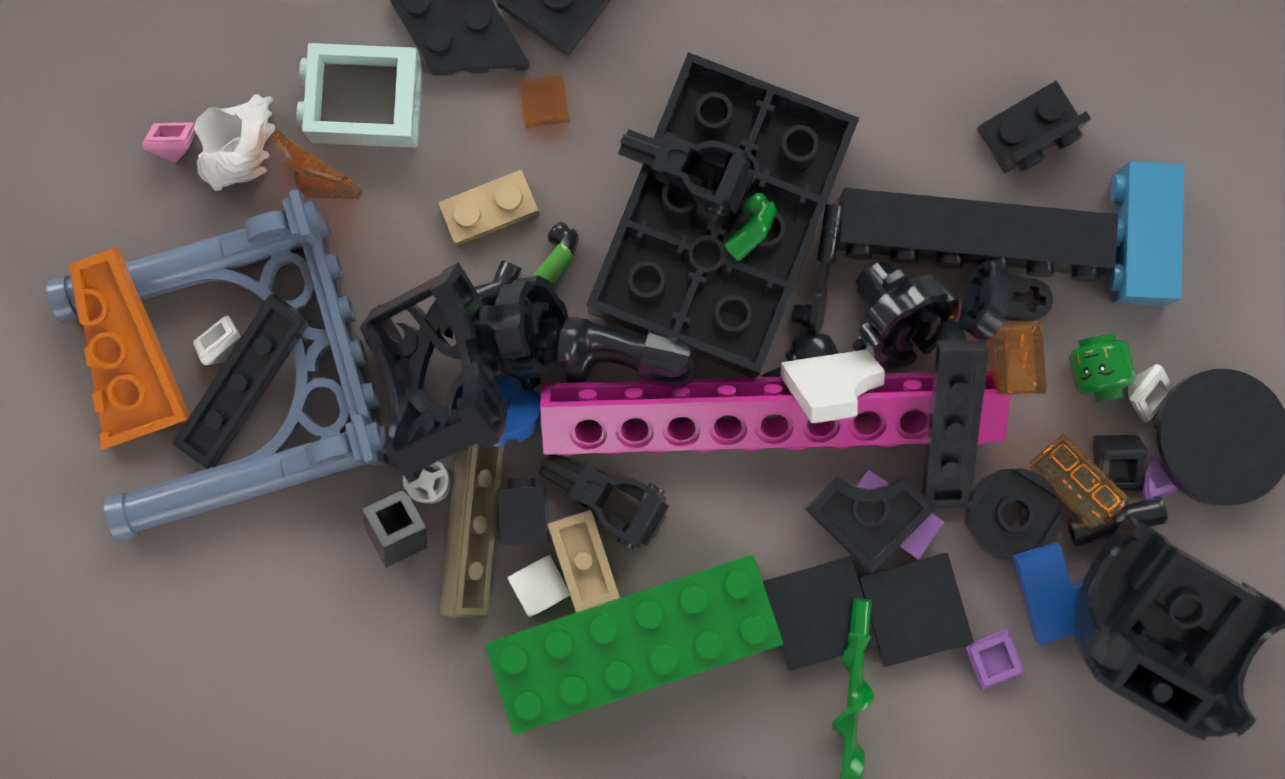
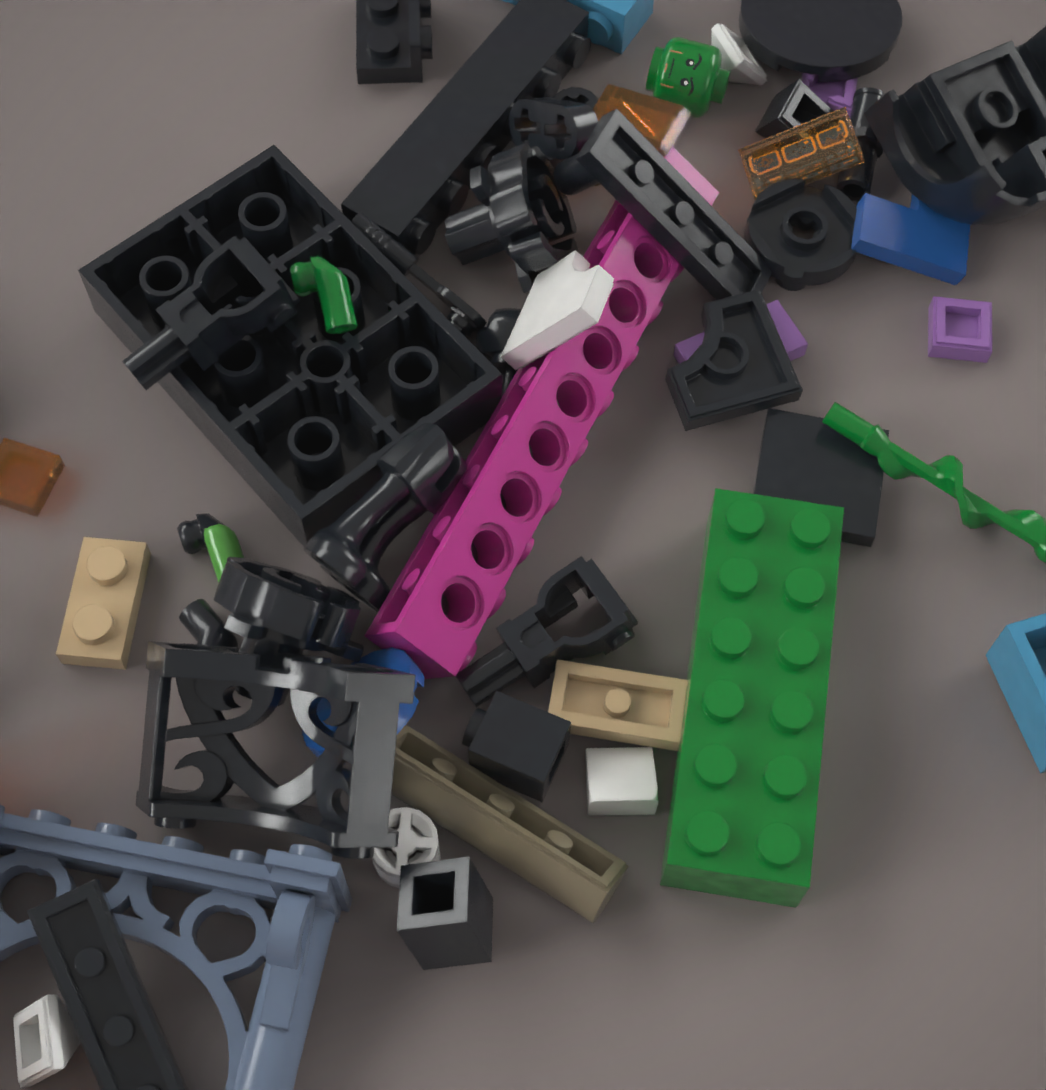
camera: 65 degrees left, 20 degrees down
(916, 609) = (867, 370): black tile -> none

